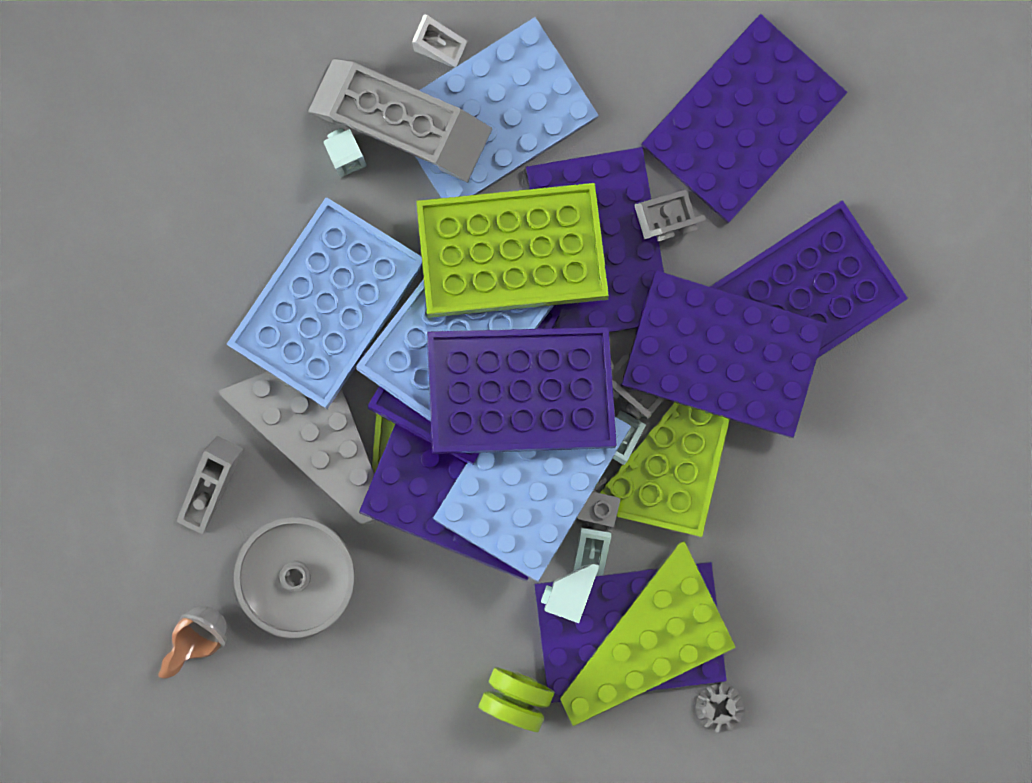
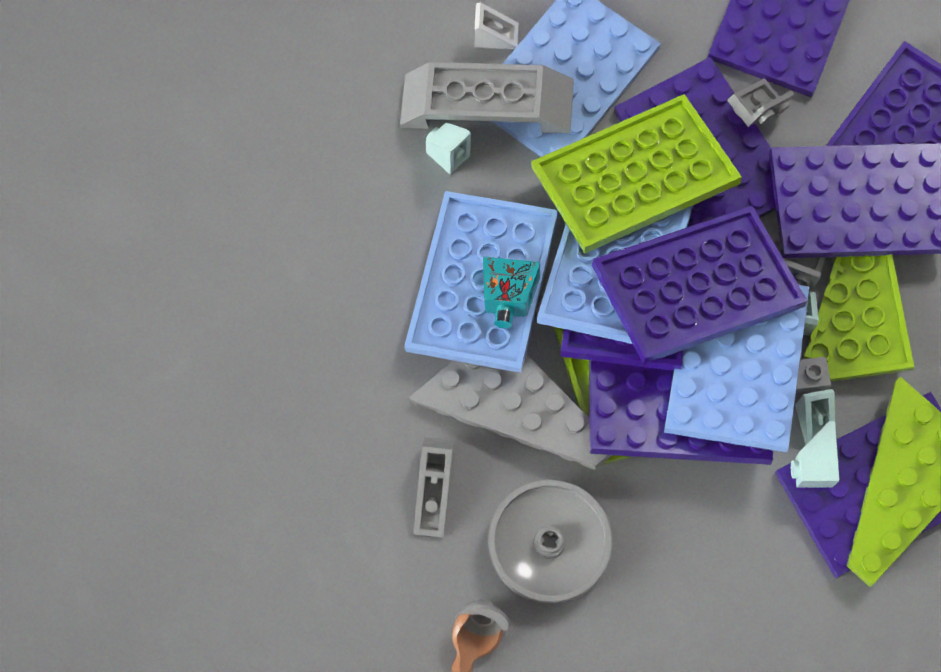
camera: 20 degrees left, 15 degrees down
(342, 326) = (509, 288): none -> teal torso
(518, 694) = (808, 578): lime wheel -> none

